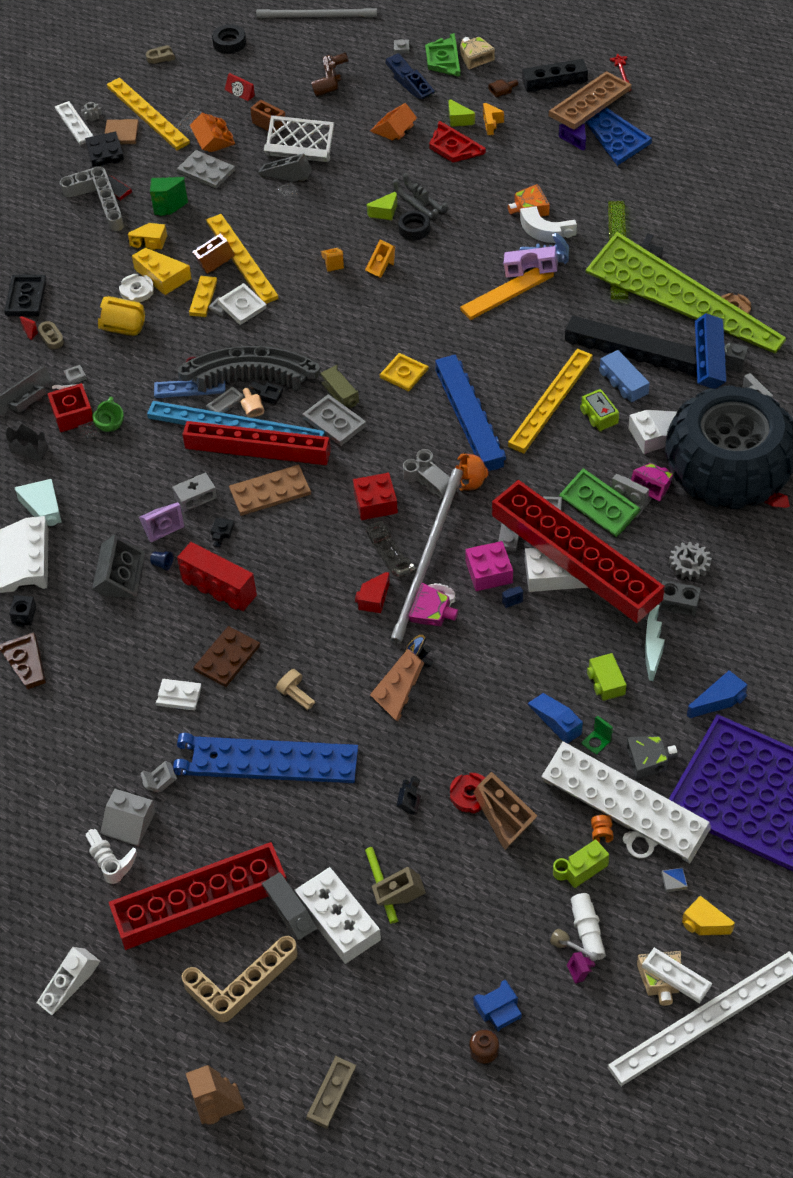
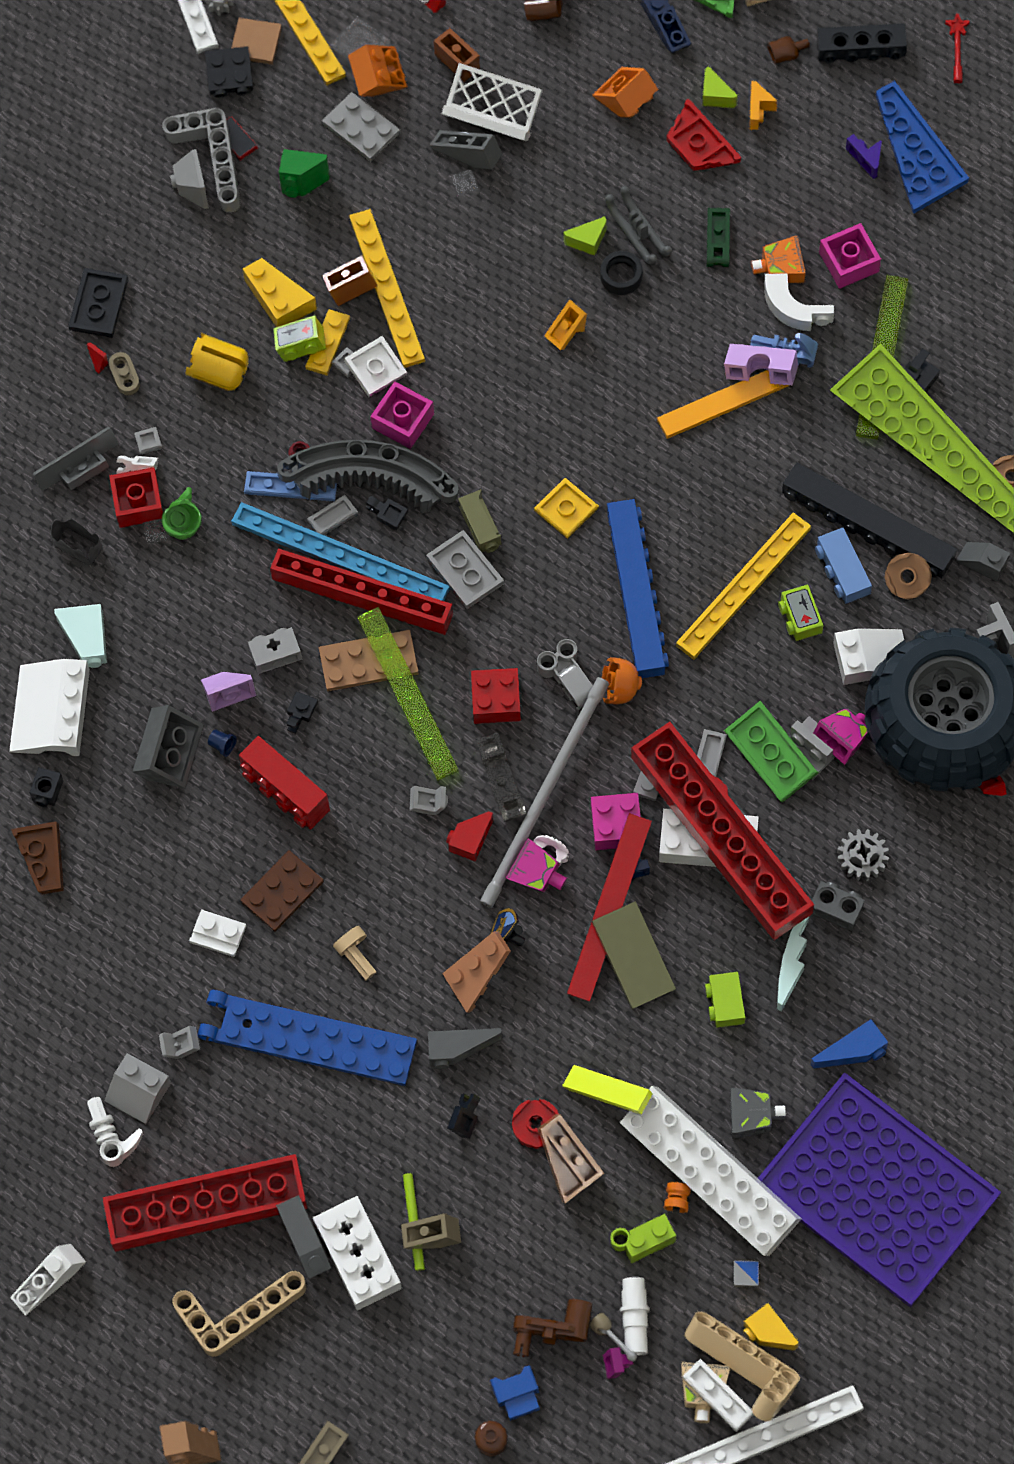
camera: 10 degrees right, 15 degrees up
(85, 211) = (189, 179): none -> light grey slope
(144, 284) = (248, 305): white plate -> none
(152, 233) = (274, 231): yellow slope -> none
(181, 293) = (299, 338): none -> lime brick
(252, 404) = (365, 526): light nougat piece -> none
(267, 328) = (402, 415): none -> dark pink brick
(305, 505) = (407, 694): none -> clear neon green tile
(333, 259) = (504, 309): light orange slope -> none
(335, 575) = (428, 800): none -> light grey bracket
(391, 744) = (456, 1045): none -> dark grey slope
(480, 196) = (718, 236): none -> dark green plate
(496, 625) = (611, 899): none -> red tile
(524, 655) = (633, 955): none -> olive tile
(526, 753) = (607, 1089): none -> neon yellow tile
(535, 945) = (572, 1329): none -> reddish brown piece
(557, 717) = (655, 1041): blue slope -> none
(579, 191) = (849, 255): none -> dark pink brick
(589, 100) = (898, 101): medium nougat plate -> none
(602, 731) = (705, 1071): green bracket -> none
(629, 837) = (704, 1215): white piece -> none
(674, 385) = (921, 572): none -> medium nougat tile
(691, 944) = (747, 1360): none -> tan beam
(710, 351) = (958, 554): blue brick -> none

